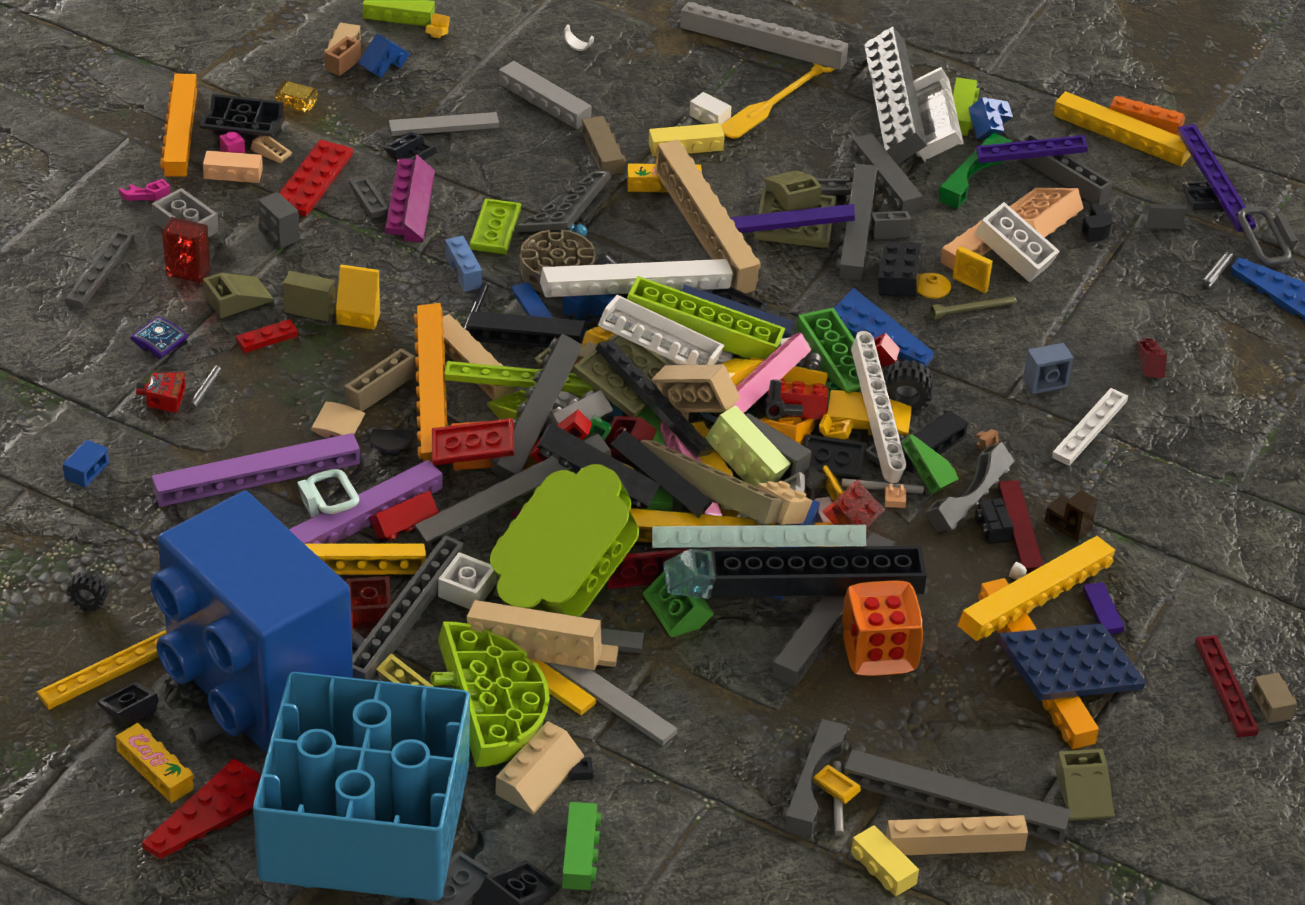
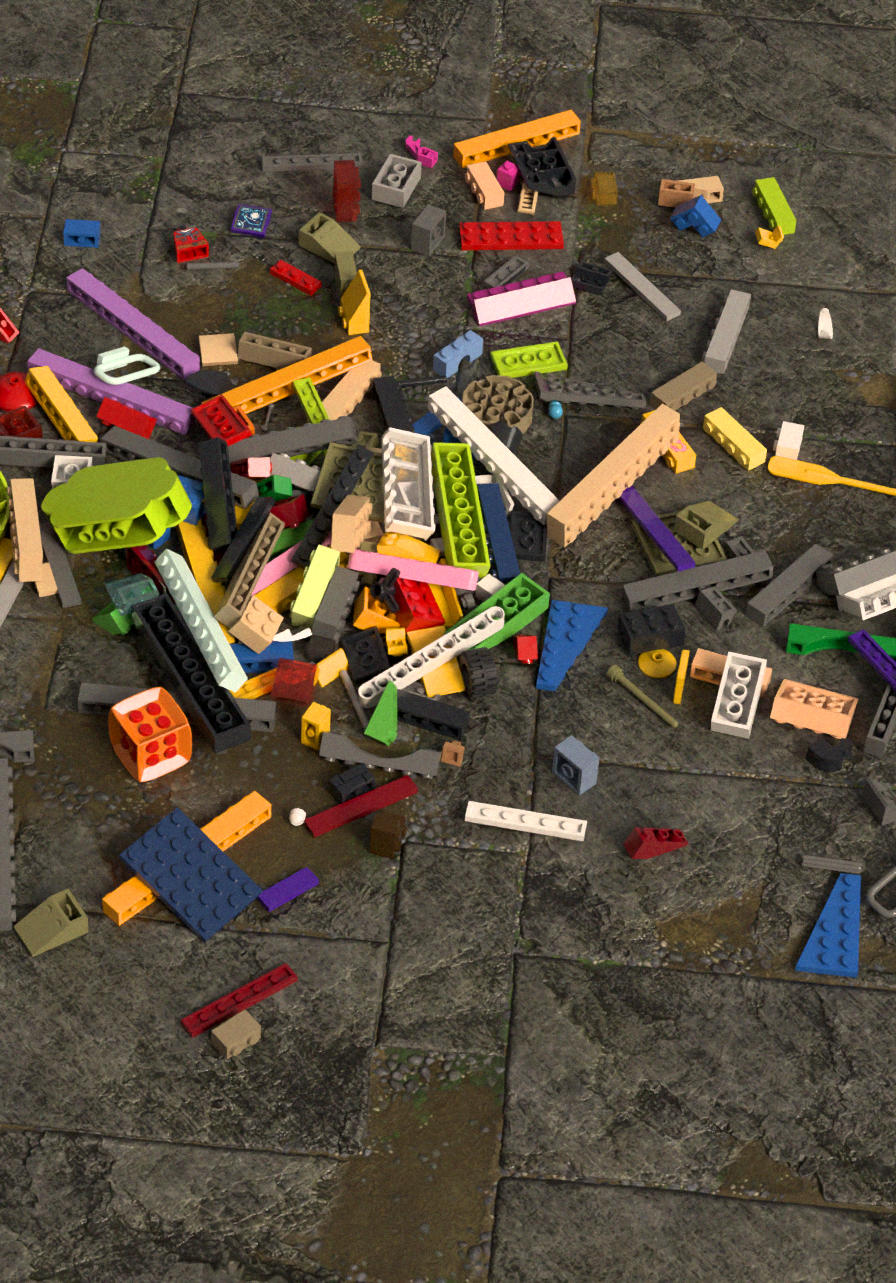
camera: 65 degrees right, 5 degrees up
(895, 496) = (346, 711): light nougat tile -> none
(917, 515) = (314, 723): none -> yellow brick
(1036, 588) = (266, 826): yellow brick -> none

